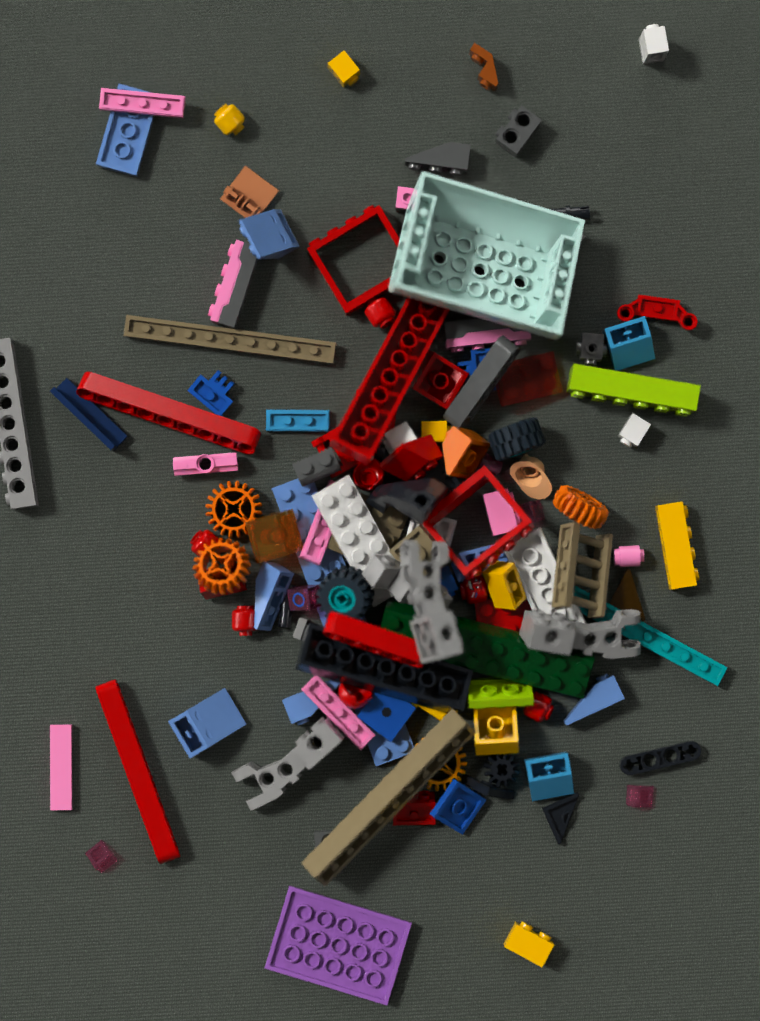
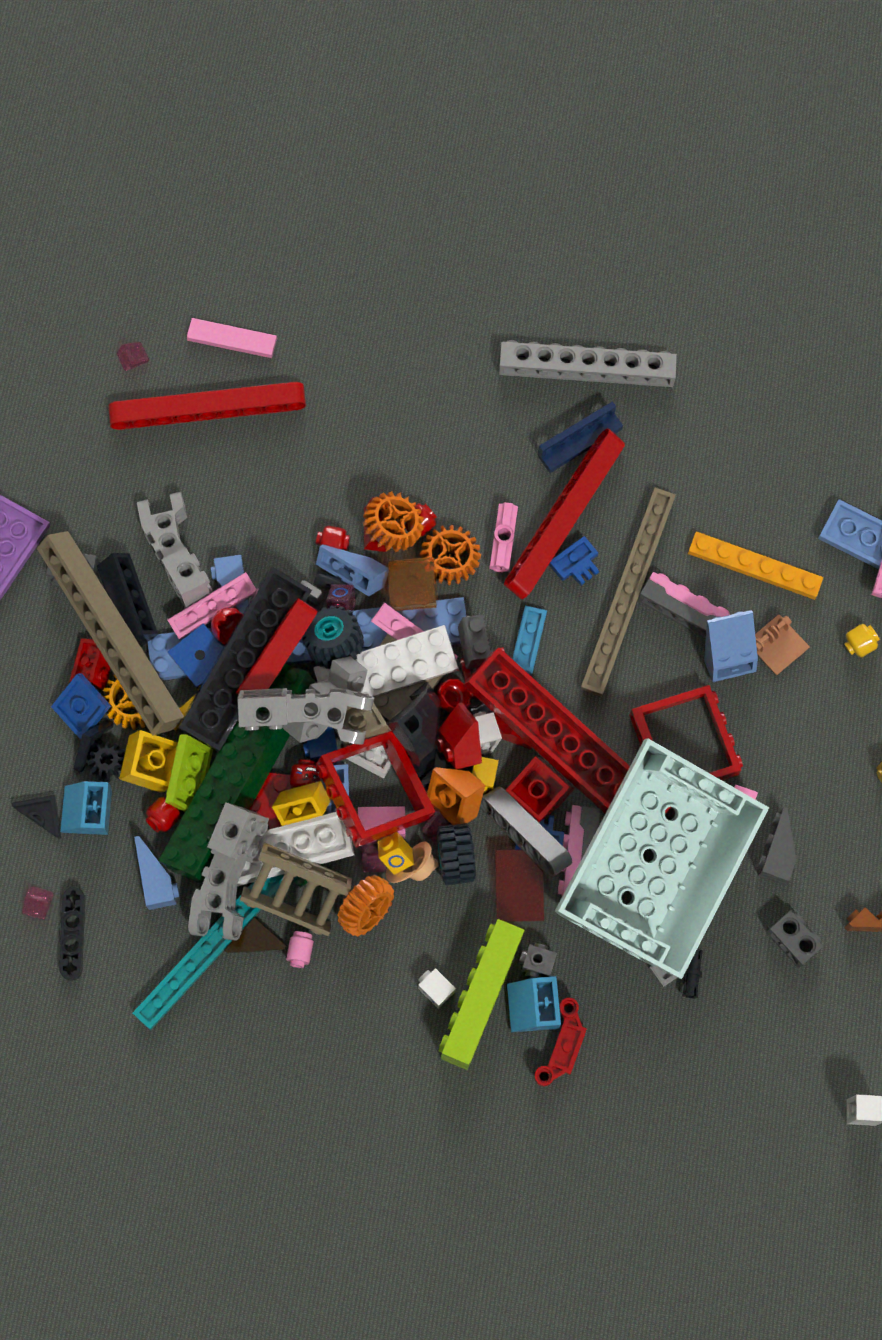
camera: 100 degrees right, 15 degrees down
(176, 229) = (755, 565): none -> light orange plate
(207, 723) = (237, 479): medium blue slope -> none
(345, 793) = (126, 593): none -> black brick
(380, 312) = (625, 745): red head -> none
(527, 492) = (395, 853): none -> yellow brick
(676, 545) = (298, 1004): yellow brick -> none

